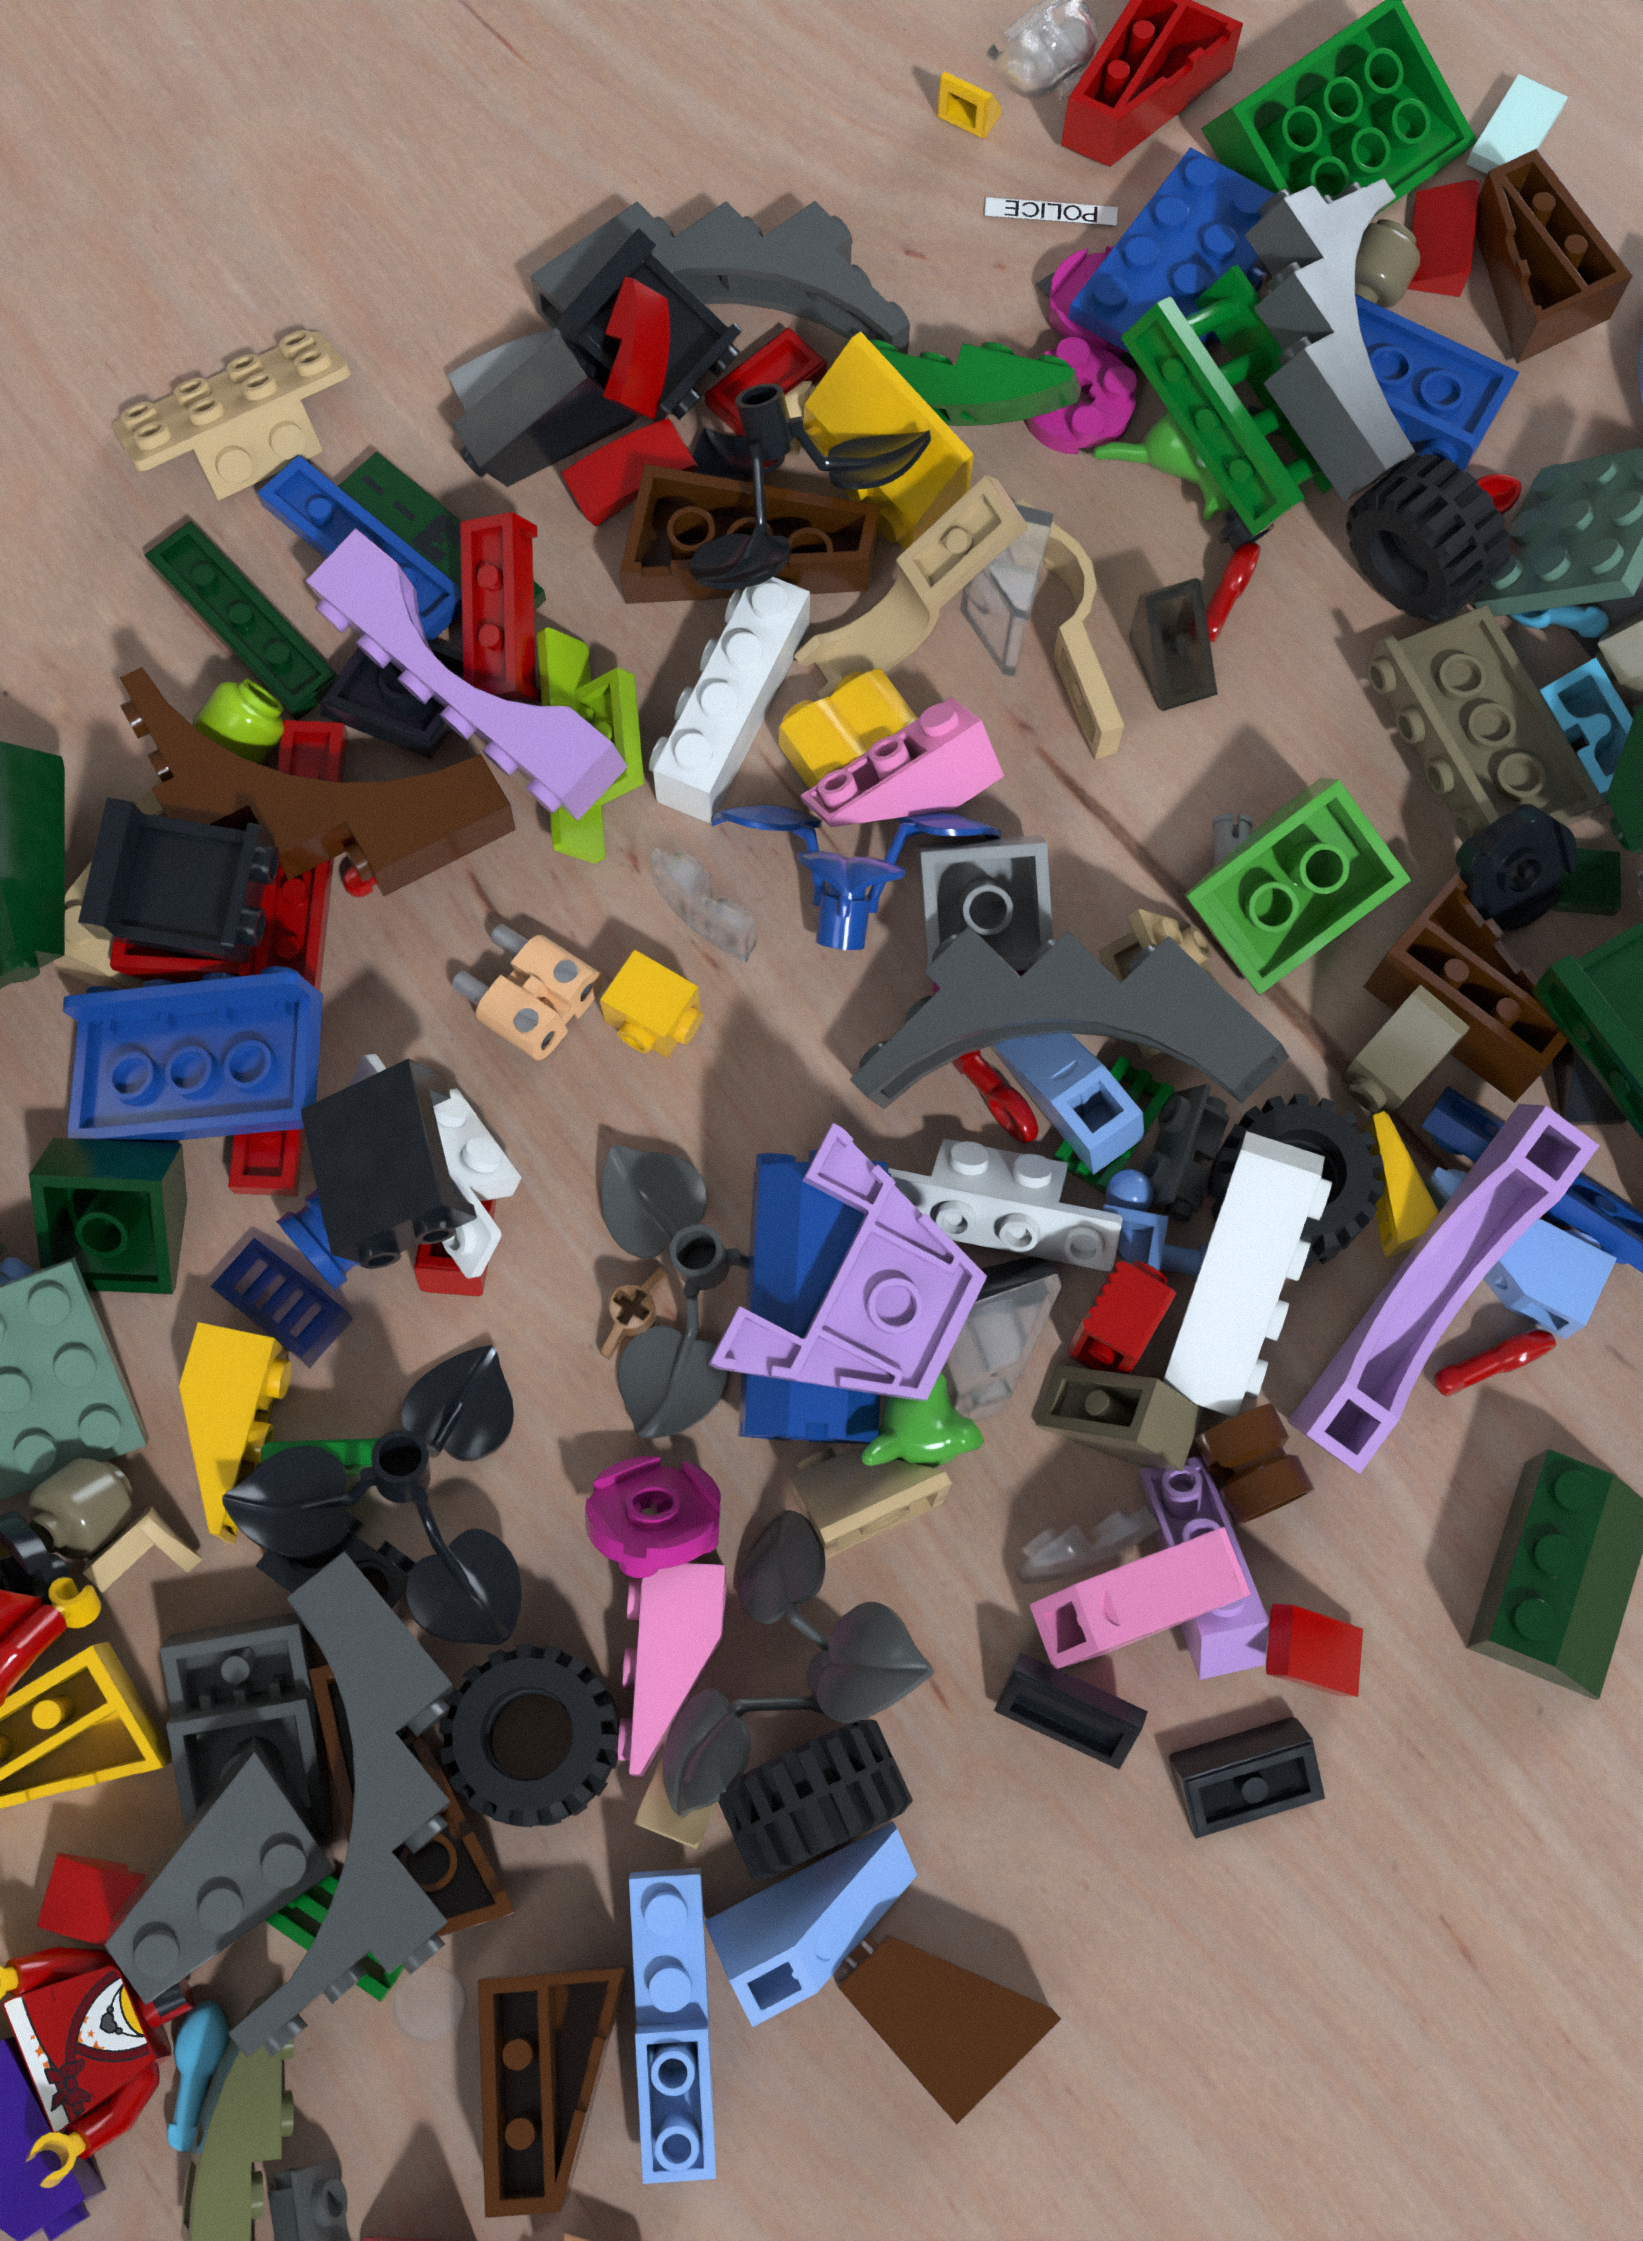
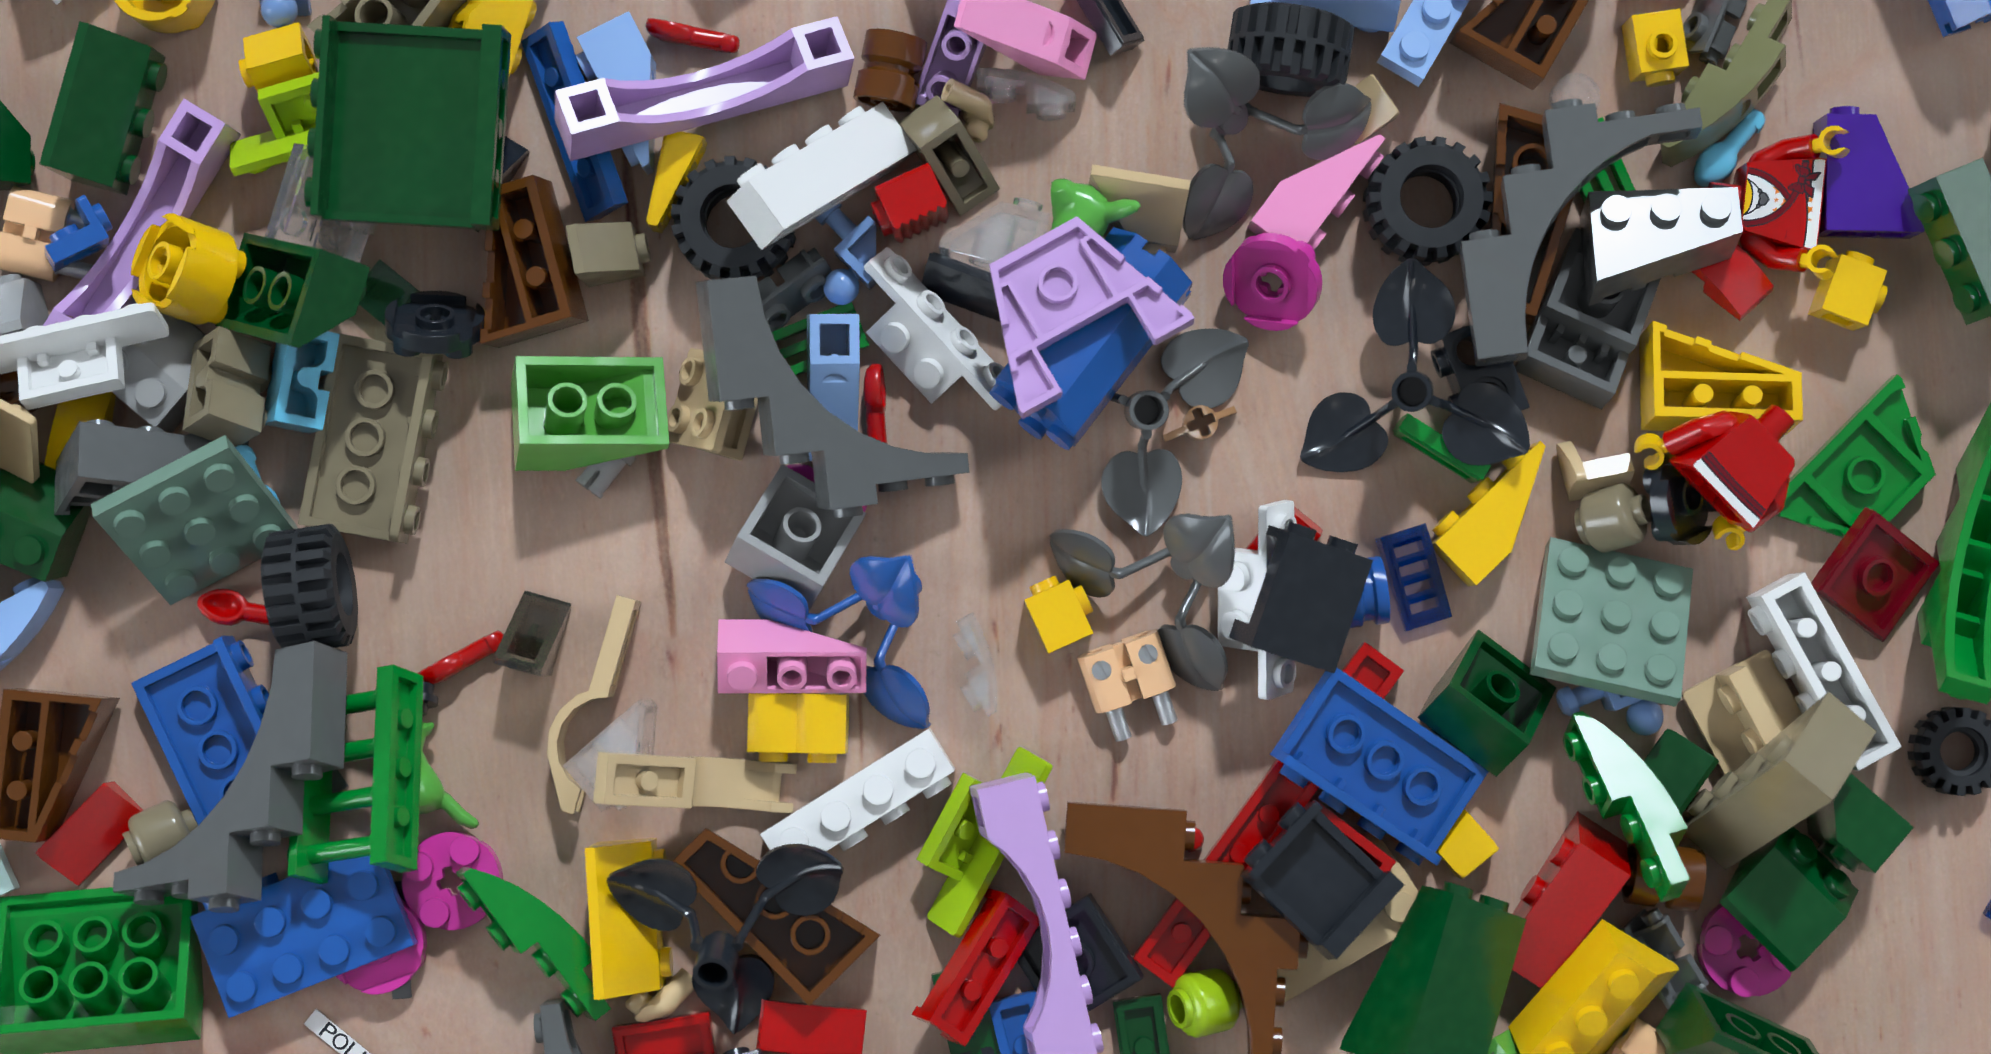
camera: 145 degrees left, 15 degrees up
(43, 1052) = (1466, 846): none -> yellow slope
(363, 2137) = (1655, 47): none -> yellow brick
(551, 1139) = (1200, 551): none -> dark grey plant
(1134, 1491) = (975, 106): none -> tan arm

